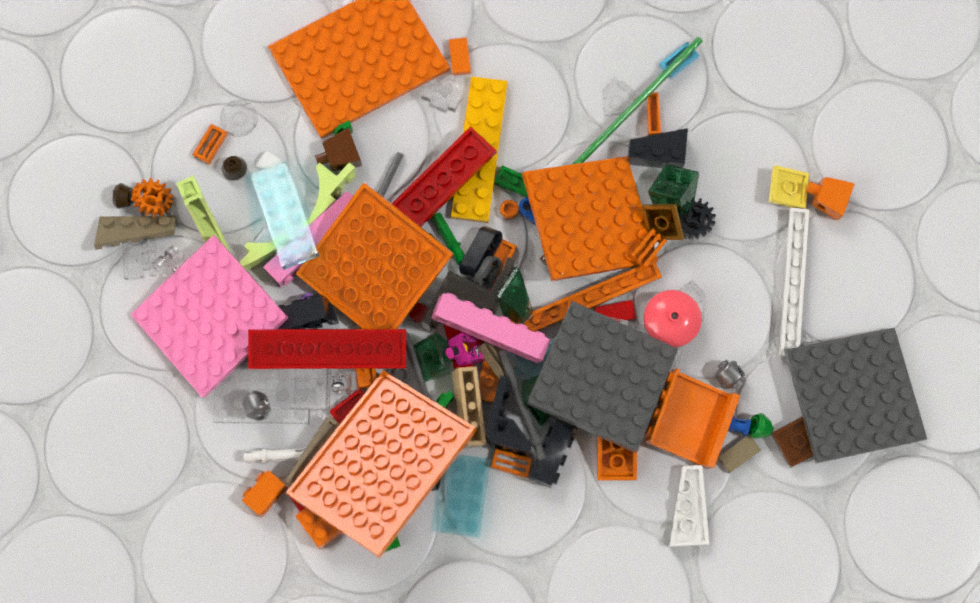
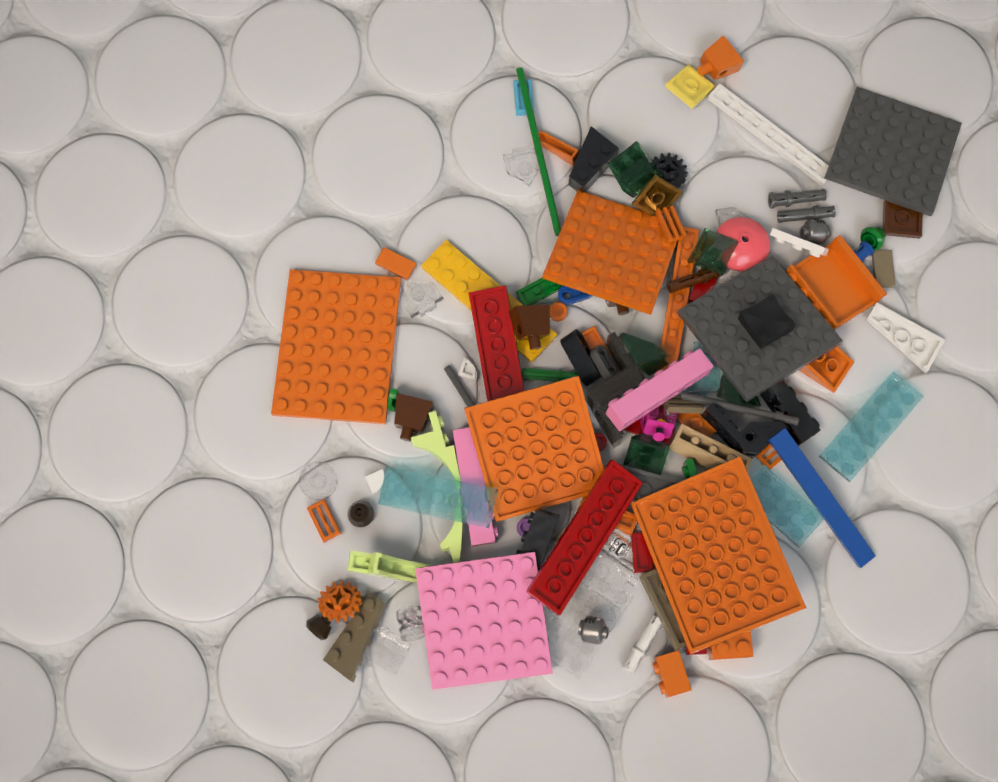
camera: 50 degrees left, 0 degrees up
(409, 172) = (467, 370): none -> white tile
(478, 192) = (531, 323): none -> reddish brown torso
(491, 521) = (821, 497): none -> blue tile
(587, 528) = (871, 426): none -> clear light blue plate
(606, 375) = (766, 321): none -> black brick
(614, 300) = (701, 276): none -> reddish brown pin
(645, 298) = (713, 251): none -> slope
(708, 365) = (799, 243): none -> white plate
(742, 333) = (787, 200): none -> dark grey pin
(747, 363) = (806, 214): none -> dark grey pin

